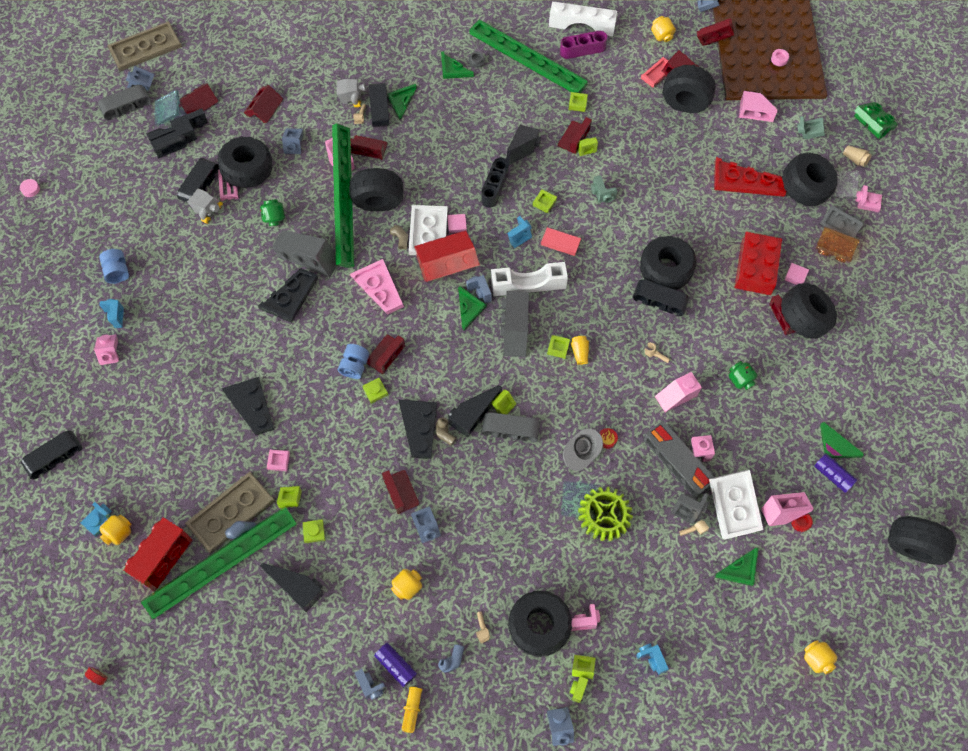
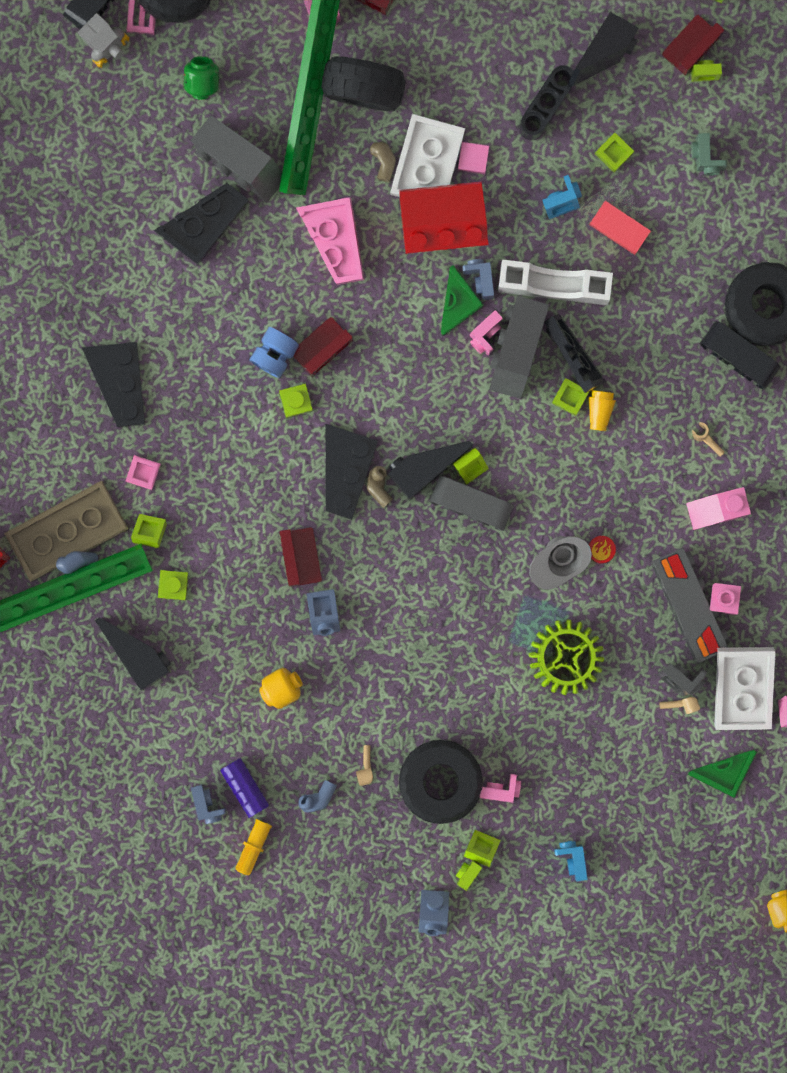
camera: 10 degrees right, 20 degrees up
(490, 320) = (488, 328): none -> bright pink bracket
(552, 319) = (574, 354): none -> black wing

